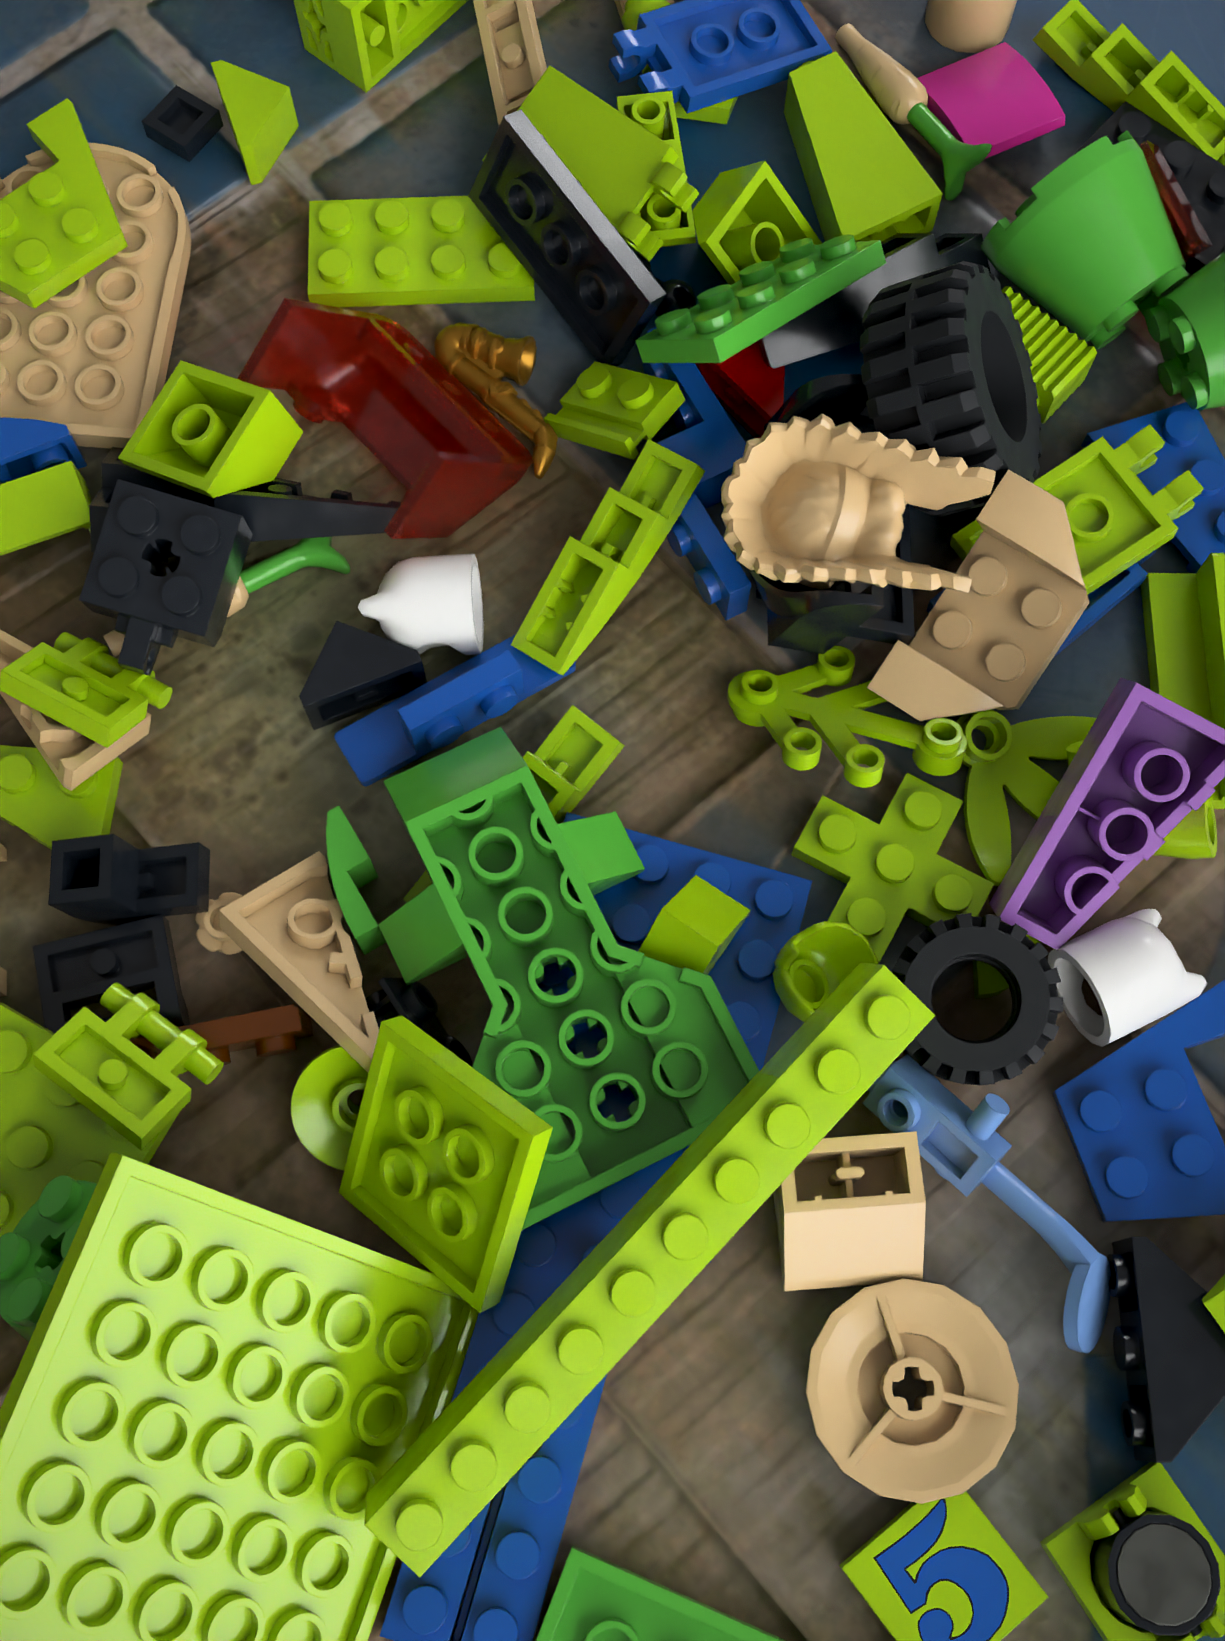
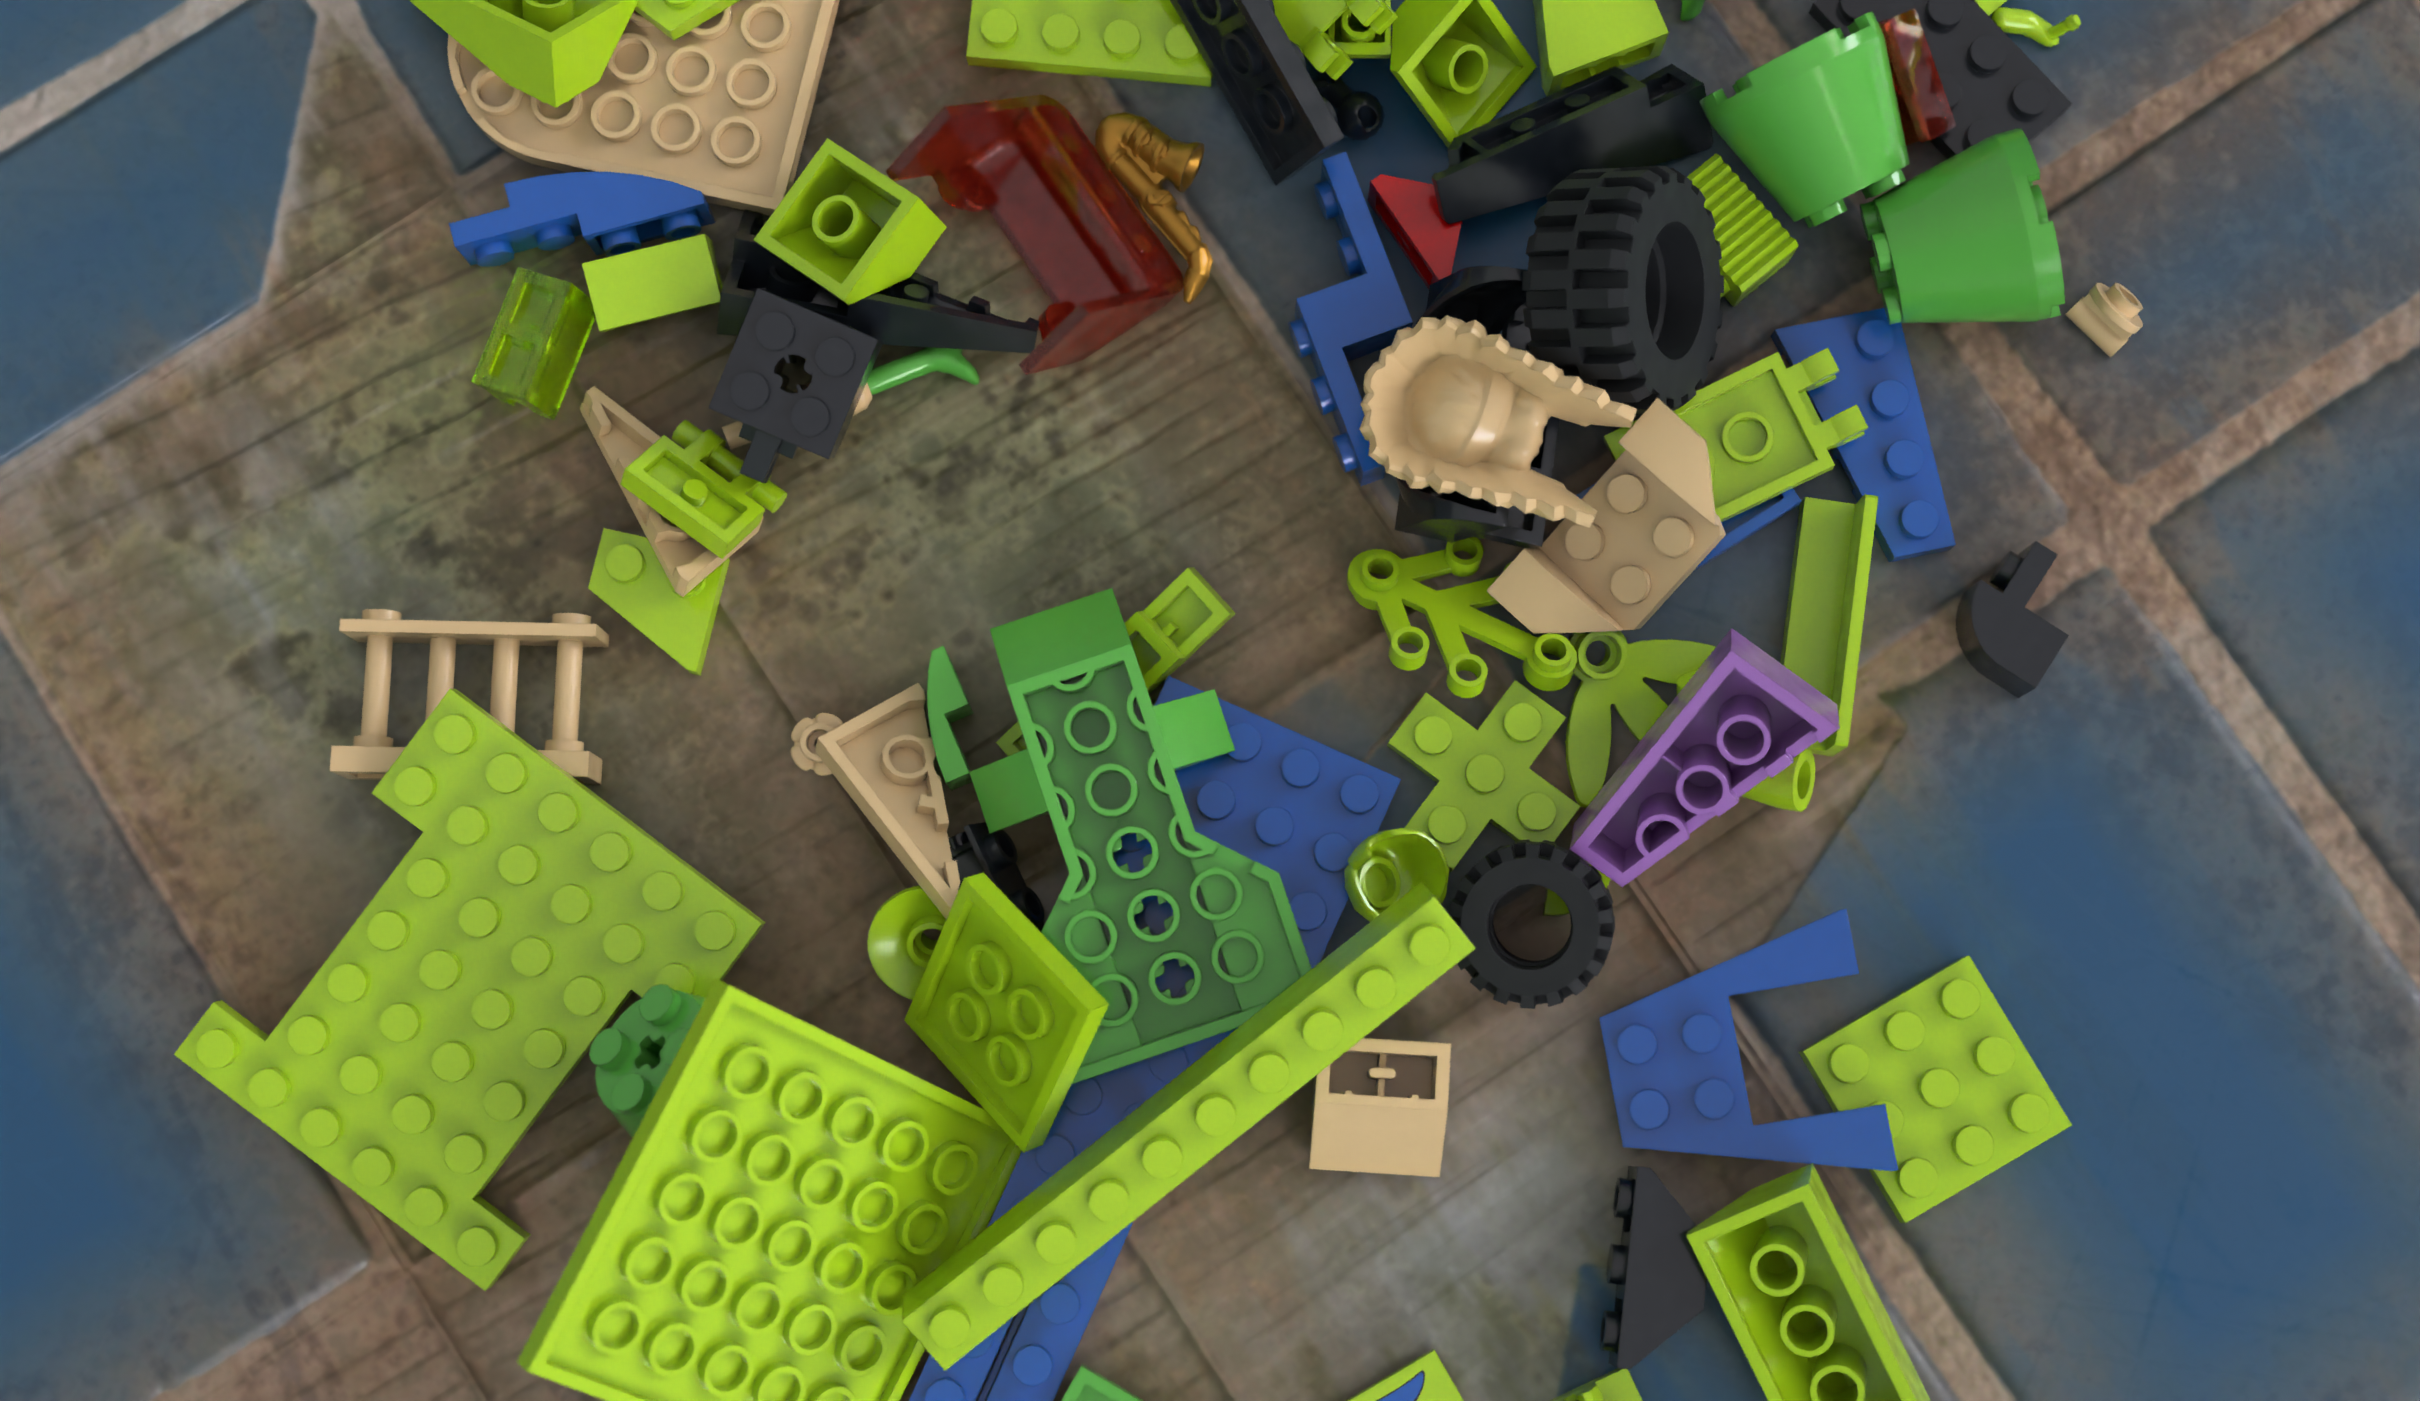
camera: 10 degrees right, 10 degrees up
(84, 966) = (705, 772): black plate -> none
(115, 1076) = (711, 892): lime plate -> none
(118, 884) = (732, 694): black brick -> none
(267, 1031) = (795, 863): reddish brown hinge -> none
(358, 674) = (975, 502): black slope -> none
(431, 603) = (1057, 441): white piece -> none
(442, 710) = (1072, 542): blue bracket -> none
(608, 560) = (1246, 414): lime slope -> none
(615, 409) = (1276, 241): lime plate -> none
(694, 927) = (1274, 818): lime slope -> none
(760, 301) = (1444, 152): bright green plate -> none
(955, 1427) = (1442, 1314): tan piece -> none
(968, 1153) = (1501, 1068): medium blue piece -> none
(1130, 973) = (1684, 918): white piece -> none

